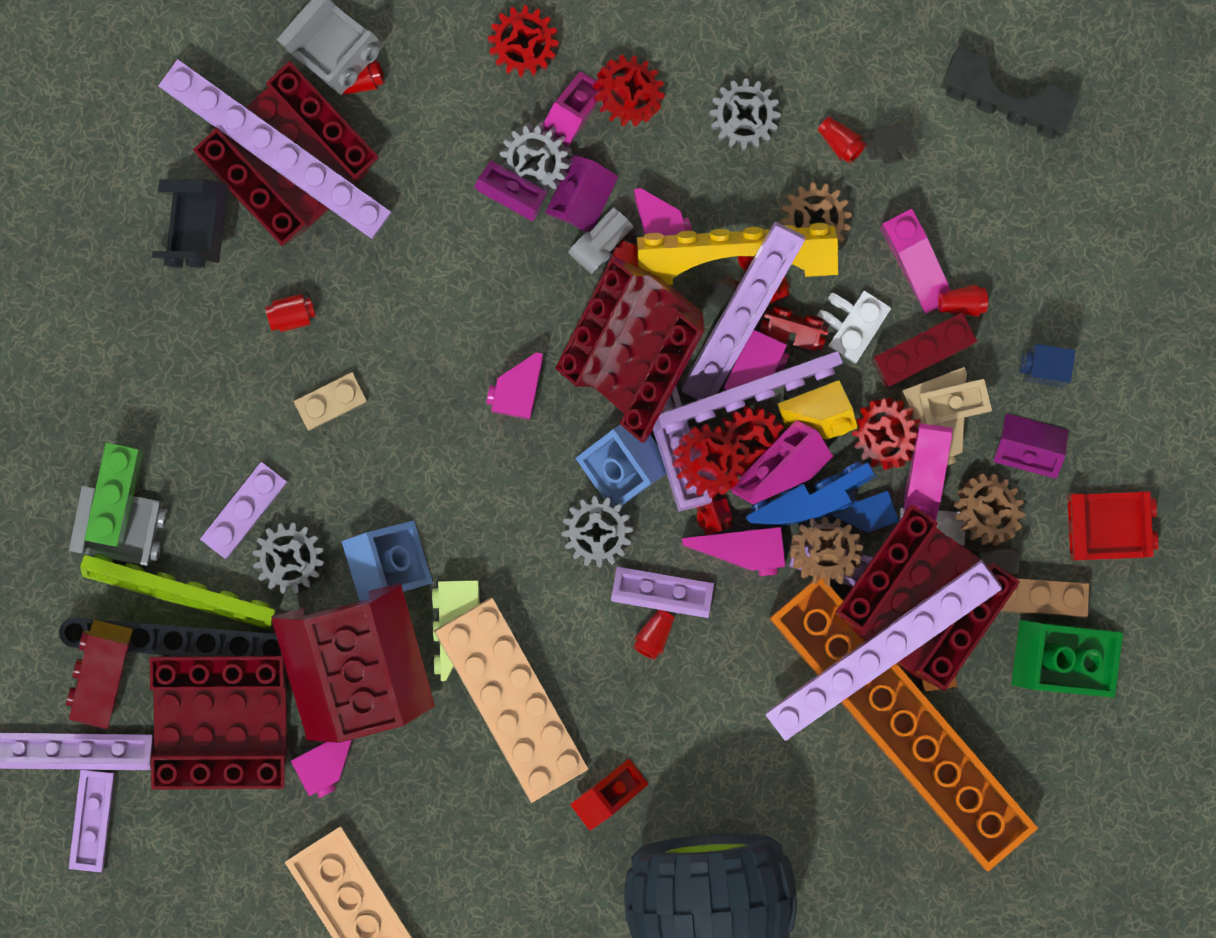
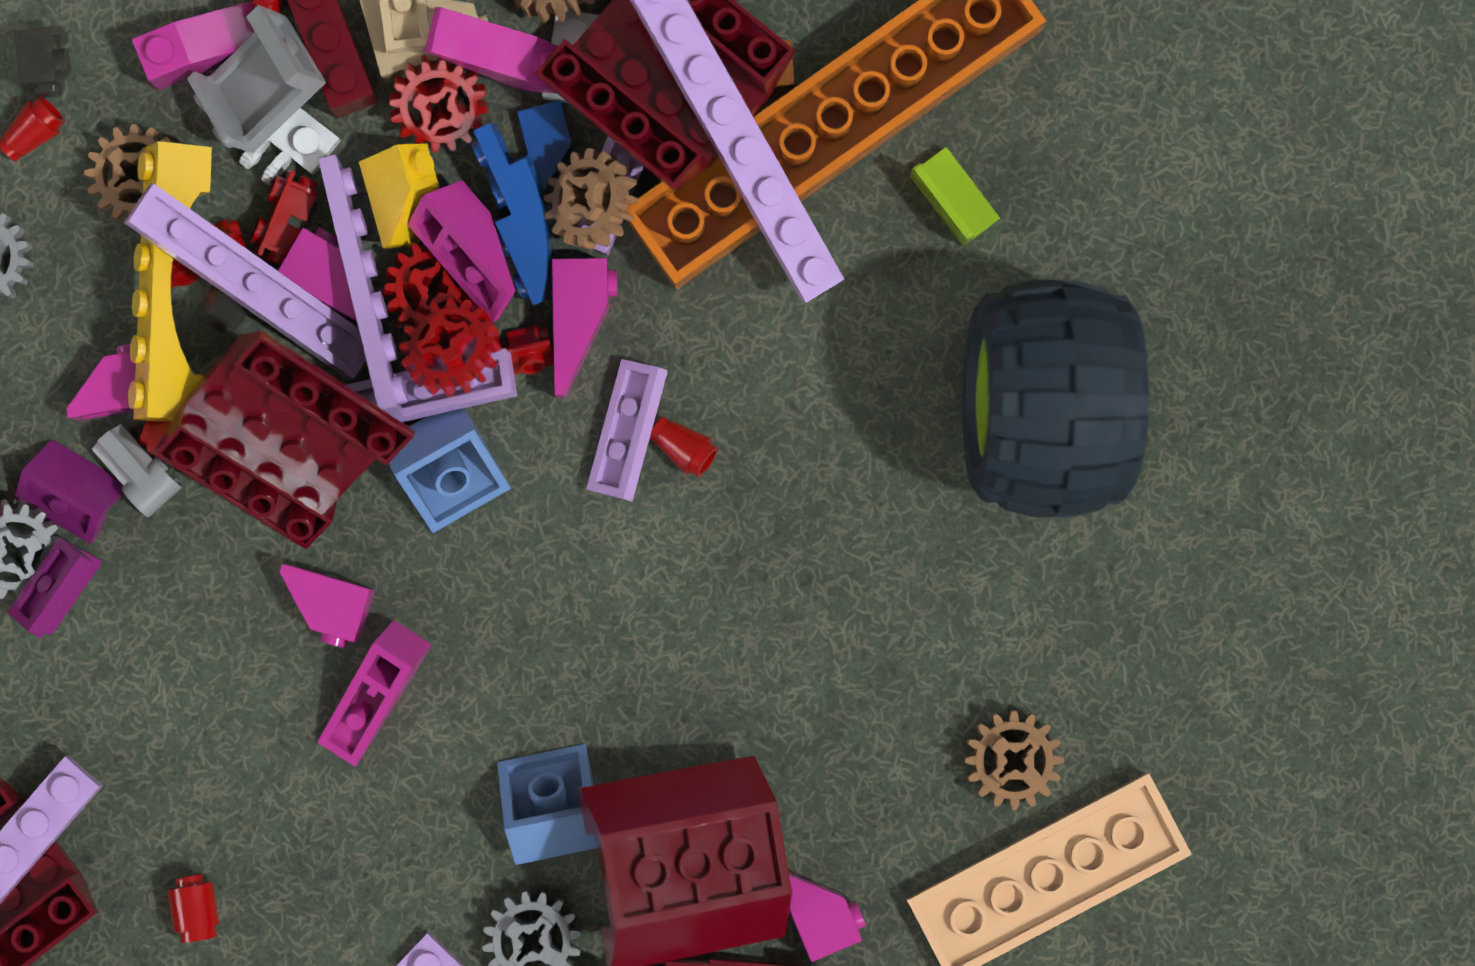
camera: 80 degrees left, 0 degrees up
(330, 401) = (322, 863): tan plate -> none
(431, 881) = (1028, 774): none -> medium nougat gear
(452, 600) = (631, 712): yellowish green slope -> none
(456, 427) = (374, 692): none -> dark pink slope
(511, 699) = (754, 650): light nougat plate -> none
(597, 516) = (556, 510): light grey gear -> none
(609, 794) = (896, 527): red slope -> none
(855, 816) = (954, 196): none -> lime panel
(888, 302) = (258, 83): none -> light grey panel

